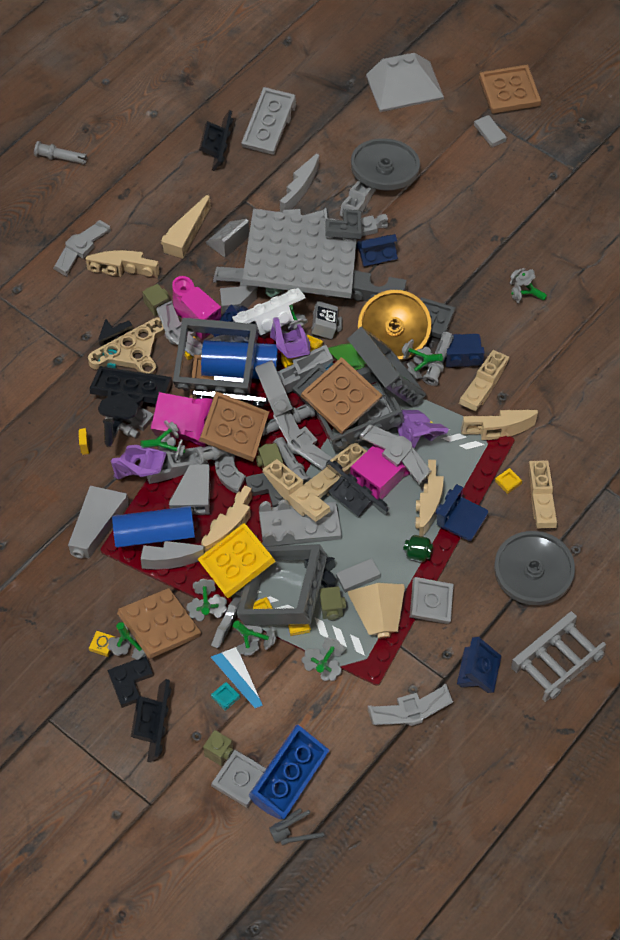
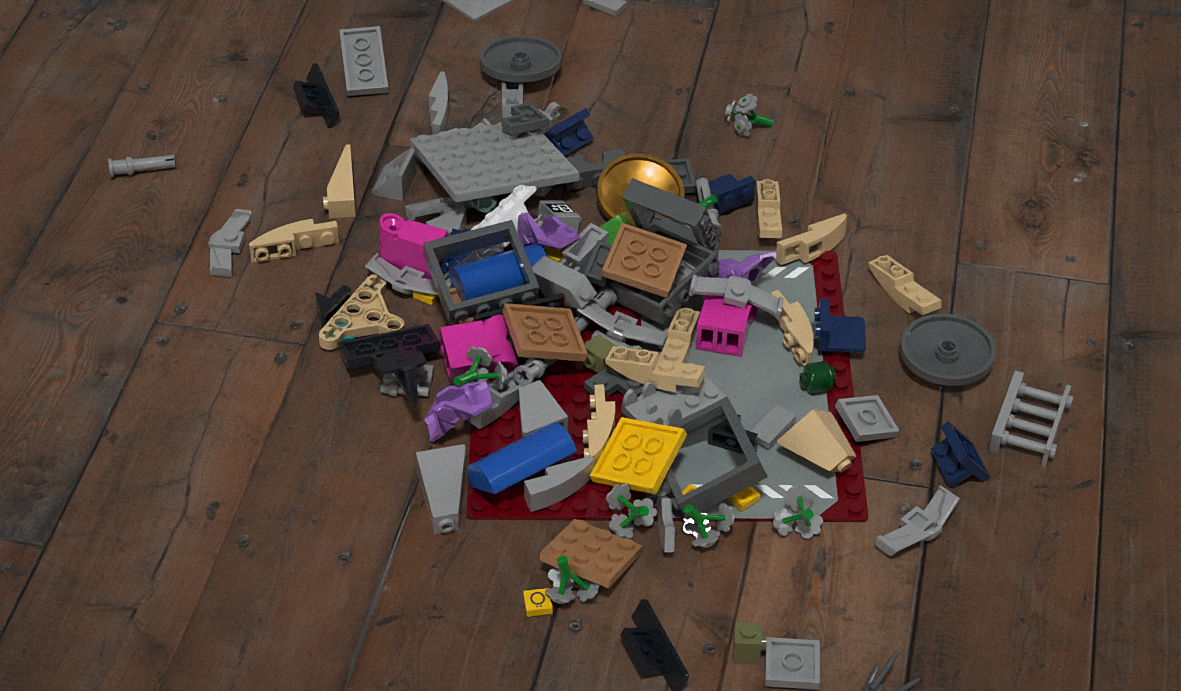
camera: 30 degrees left, 15 degrees down
(83, 441) = (373, 418): yellow tile -> none
(124, 679) = (590, 624): black plate -> none
(155, 297) = (354, 258): olive brick -> none
(225, 696) = (713, 595): teal tile -> none
(228, 473) = (563, 387): light grey tile -> none
(234, 668) = (700, 566): dark azure sticker -> none
(288, 773) = (843, 634): blue brick -> none
(331, 603) = (770, 458): olive brick -> none
(351, 494) = (712, 350): black bracket -> none
(508, 481) = (858, 289): yellow tile -> none

